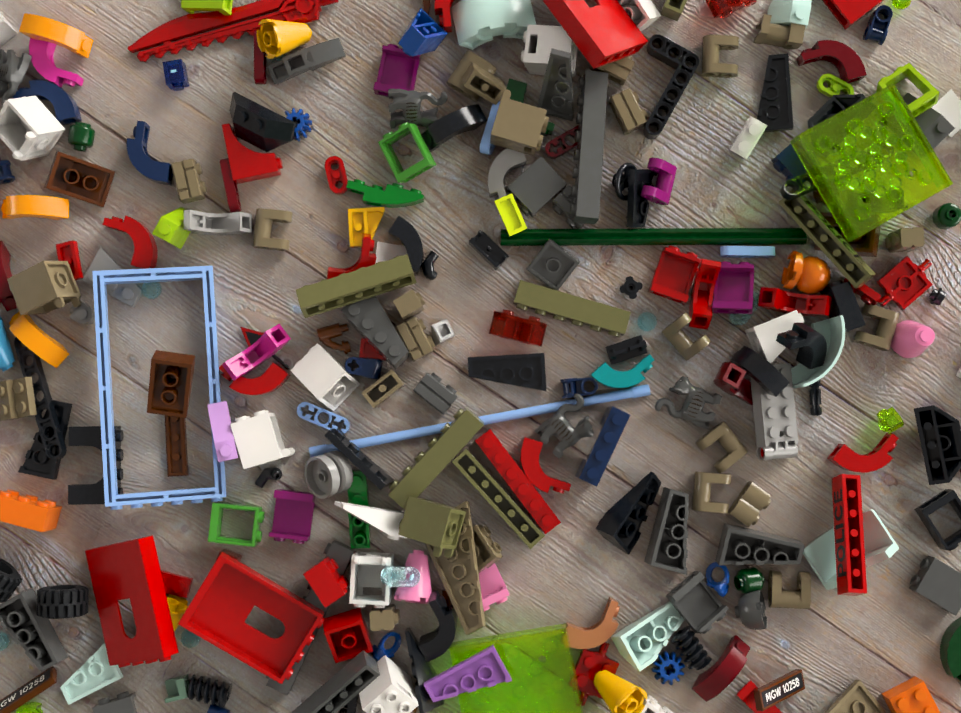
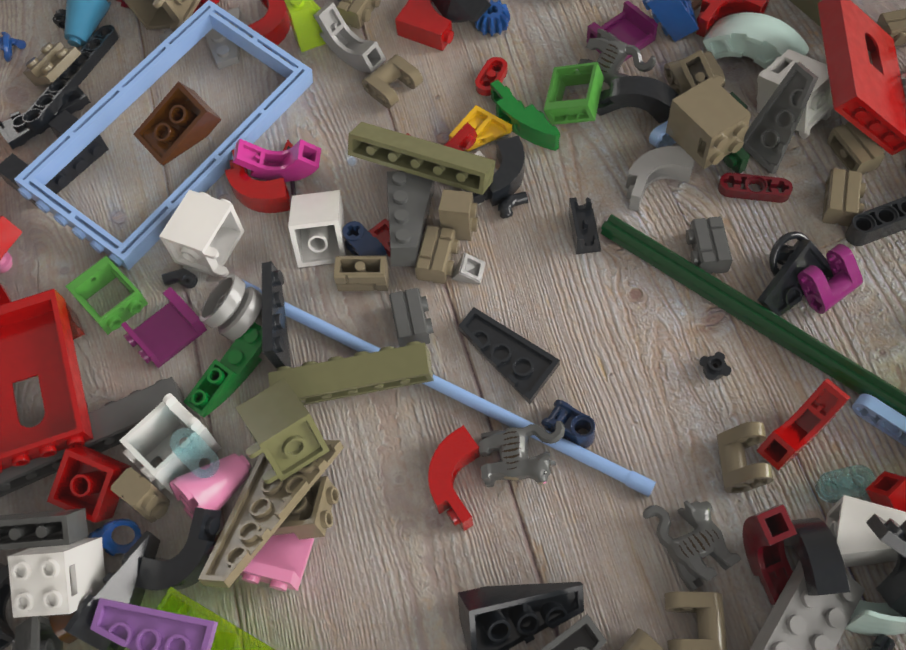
camera: 50 degrees right, 25 degrees down
(37, 340) = (115, 34): light orange arch -> none
(151, 290) = (245, 62): clear light blue plate -> none
(176, 446) = (137, 191): reddish brown tile -> none
(222, 432) = (168, 199): lavender slope -> none
(230, 187) = (387, 30): dark red beam -> none
(307, 417) = (283, 255): light blue beam -> none
(327, 581) = (120, 398): red brick -> none
(332, 331) = (365, 196): reddish brown plant -> none
(382, 519) = (233, 381): white slope -> none
(498, 498) = (377, 472): olive brick -> none
(510, 214) = (633, 202): neon yellow tile -> none
(517, 481) = (413, 483): red brick -> none
(526, 331) = (544, 309): clear red brick -> none
(536, 187) = (681, 199): dark grey panel -> none
(553, 264) = (642, 282): dark grey plate -> none
(572, 308) = (630, 340): olive brick -> none
(589, 147) = (769, 199): dark grey brick -> none
(594, 465) = (576, 481): dark blue arch -> none
(616, 379) = (631, 453): teal arch -> none
(626, 349) = (658, 427): black hinge -> none
(647, 321) = (707, 414): clear light blue plate -> none
(674, 274) = (778, 387): red panel -> none
(734, 289) = (846, 448): magenta panel -> none

